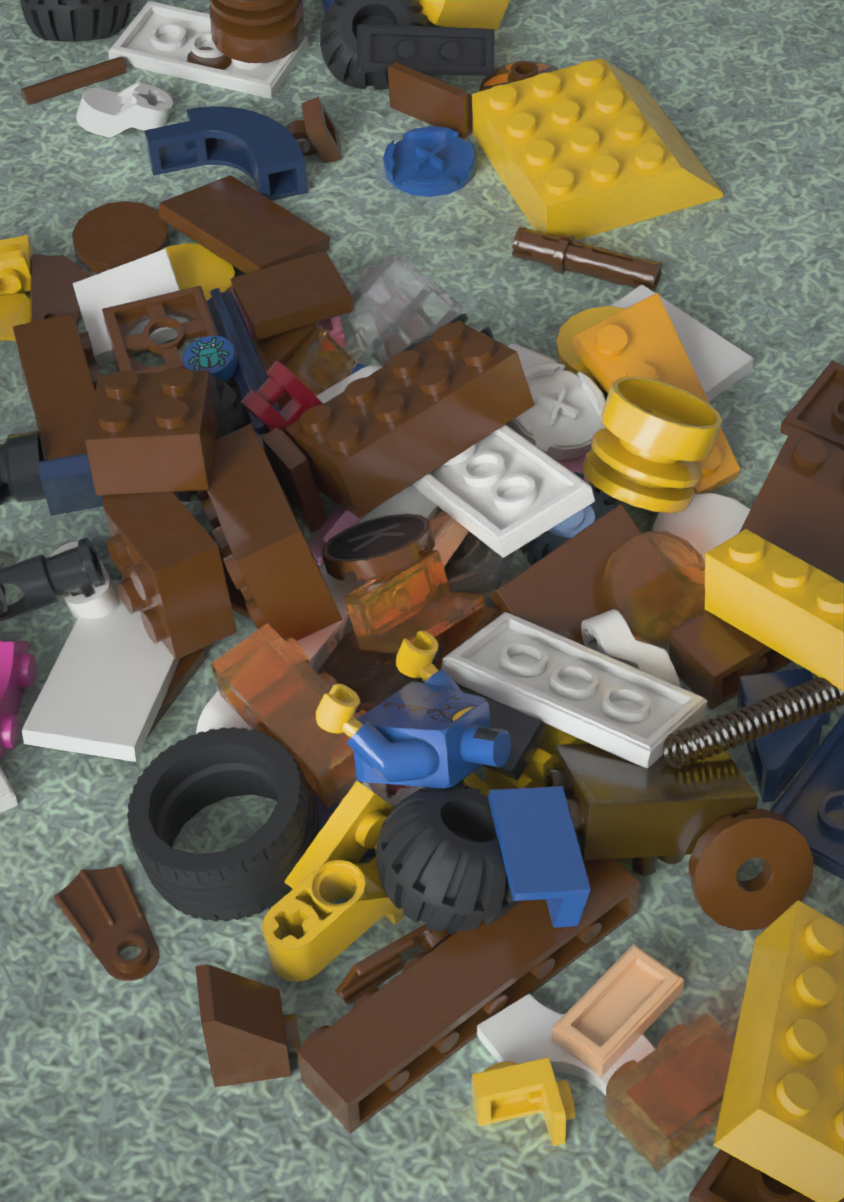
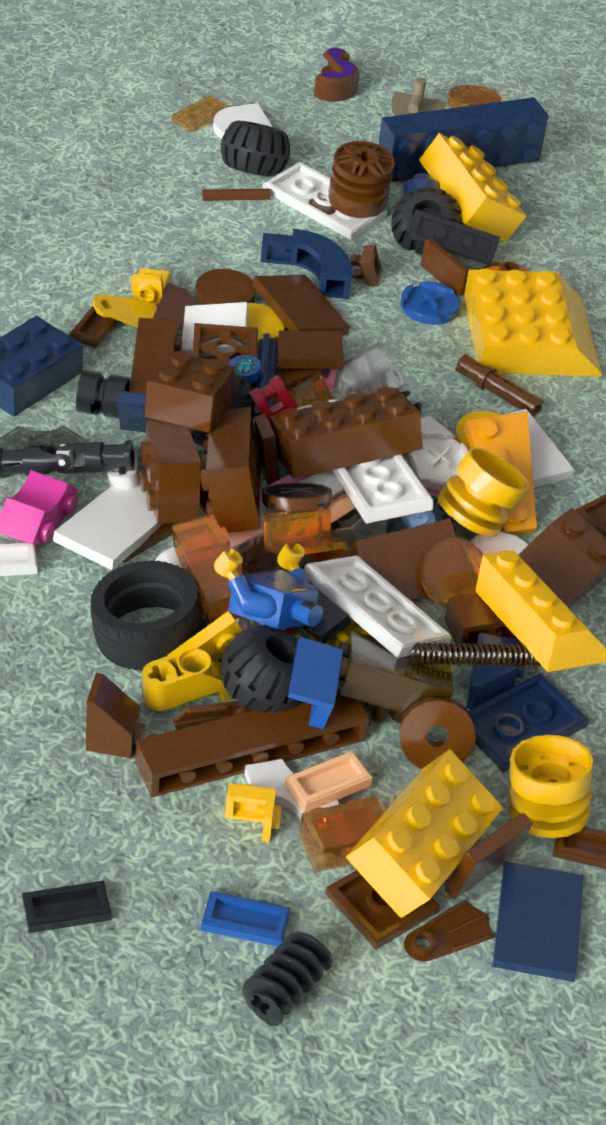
camera: 10 degrees right, 5 degrees down
(110, 919) = (63, 646): reddish brown piece -> none
(112, 112) = (250, 218): white piece -> none
(612, 637) = (413, 588): white piece -> none

